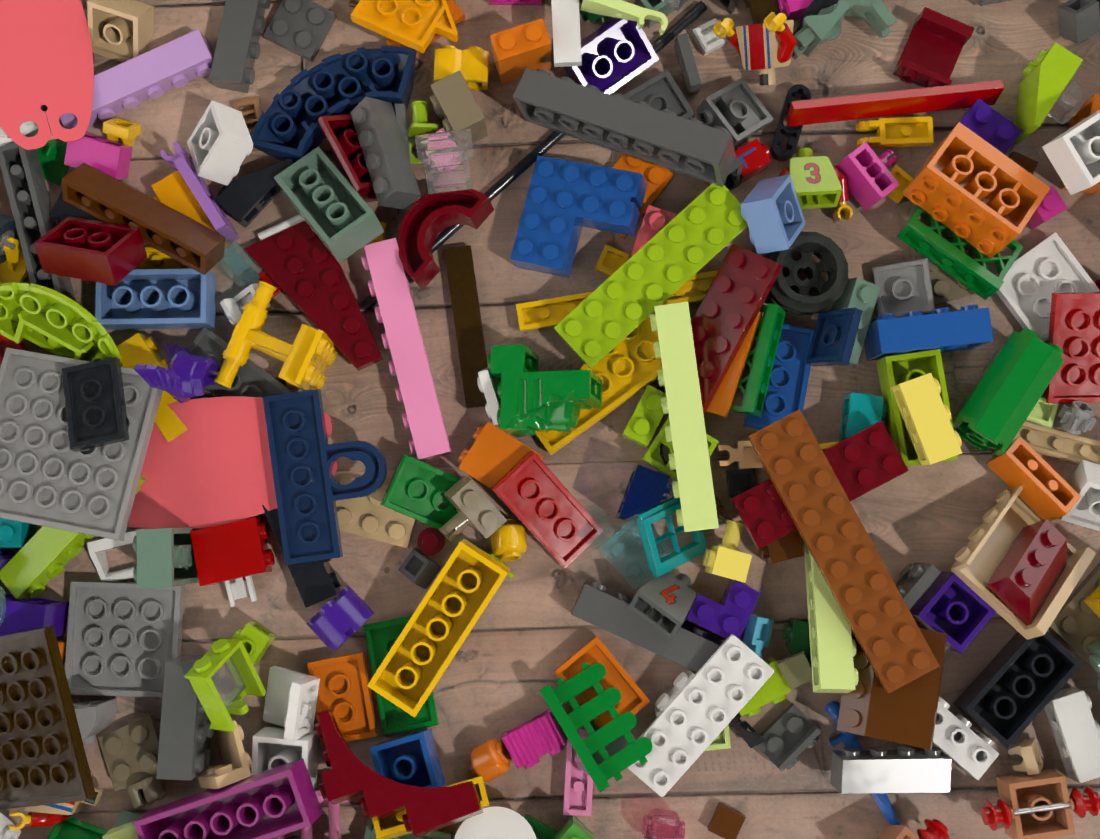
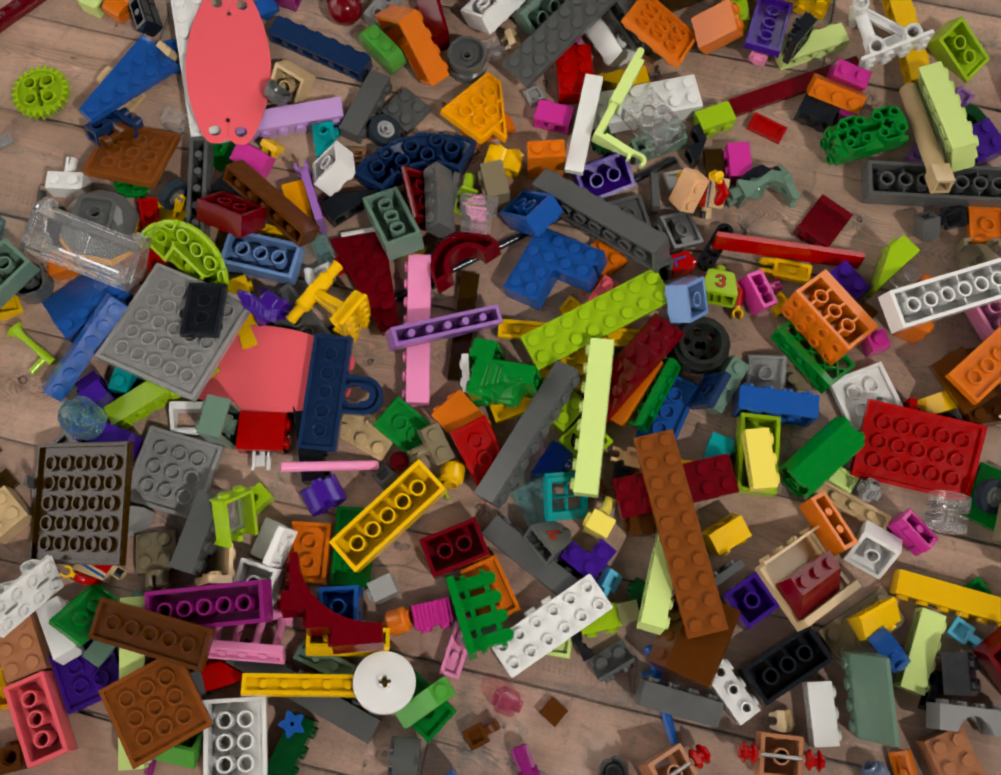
camera: 15 degrees right, 10 degrees down
(103, 48) = (276, 93): none -> dark grey helmet
(193, 96) = (324, 136): none -> teal brick
(276, 64) = (383, 129): none -> black wheel
(336, 577) = (329, 466): none -> bright pink piece
(442, 342) = (443, 327): none -> medium lavender brick
(458, 726) = (382, 589): none -> light grey brick
(522, 139) = (531, 212): none -> blue brick
(540, 644) = (454, 548): none -> dark red brick
(601, 463) = (528, 434): none -> dark grey brick
(737, 49) = (688, 190): none -> light nougat brick
(900, 528) = (726, 534): none -> yellow brick

